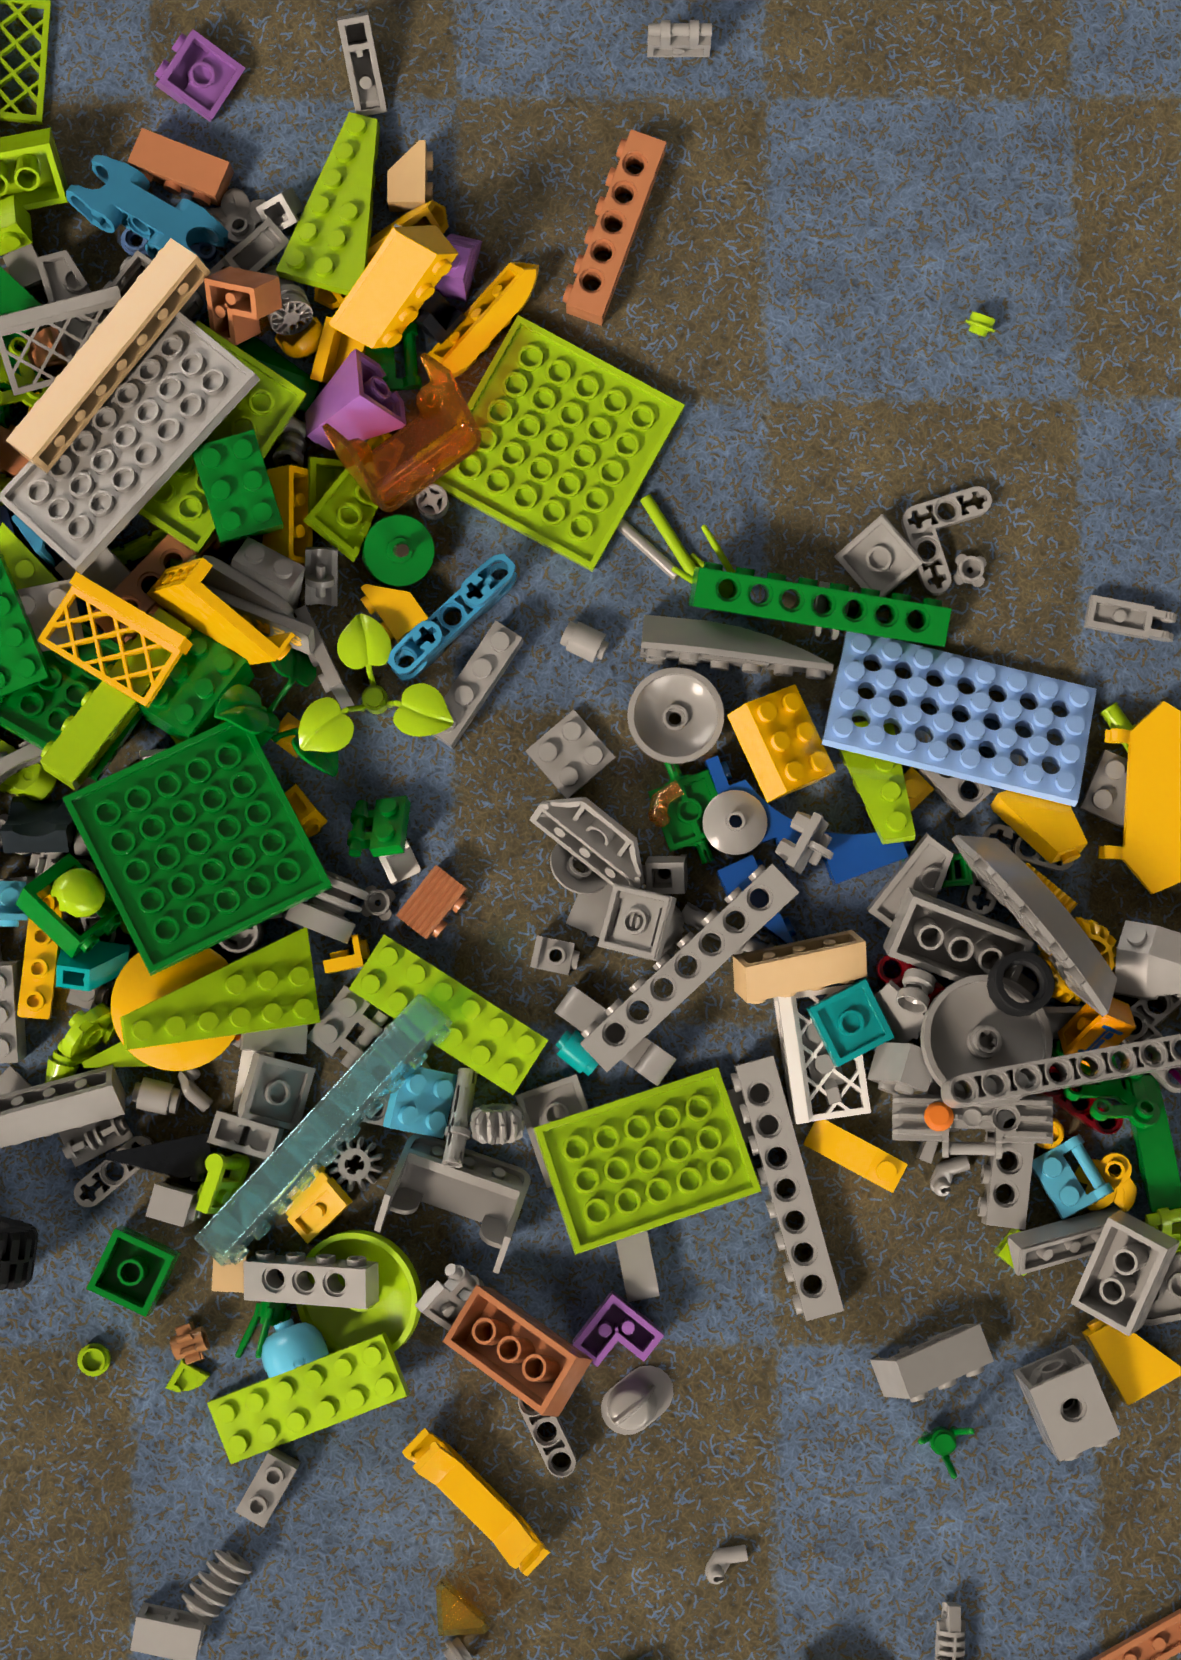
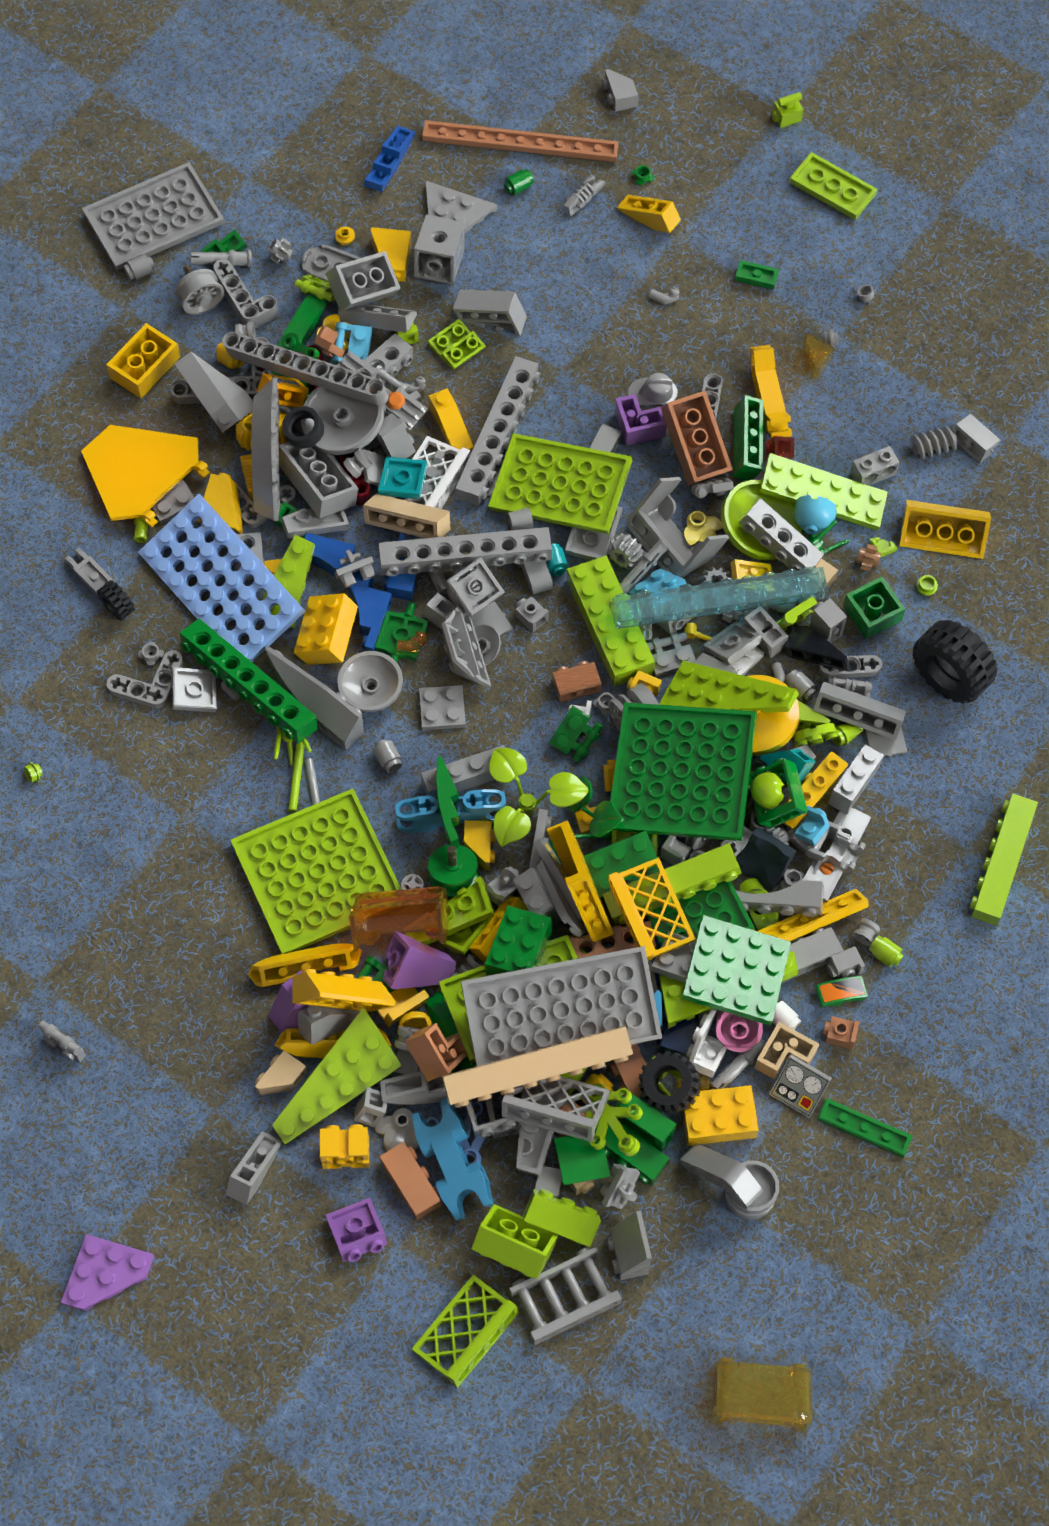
camera: 145 degrees left, 20 degrees down
(121, 1461) = (945, 529): none -> yellow slope
(274, 143) = (344, 1147): none -> yellow brick
(328, 1080) = (691, 632): none -> yellow hand
(404, 1420) = (780, 446): none -> clear red brick
(425, 1232) = (700, 531): none -> light yellow plate
(458, 1409) = (748, 438): none -> green brick
(462, 617) = (447, 797): none -> green slope
(648, 154) = (190, 953): nougat brick -> none
(728, 838) = (382, 615): light grey dish -> none
(939, 1281) = (456, 344): none -> lime slope
(944, 1443) = (514, 276): green plant -> none
(1051, 1602) = (518, 182): none -> green brick
(1065, 597) = (115, 600): none -> black tyre
(1096, 1145) = (326, 339): none -> nougat bracket
(1104, 1498) = (457, 205): none -> light grey wing

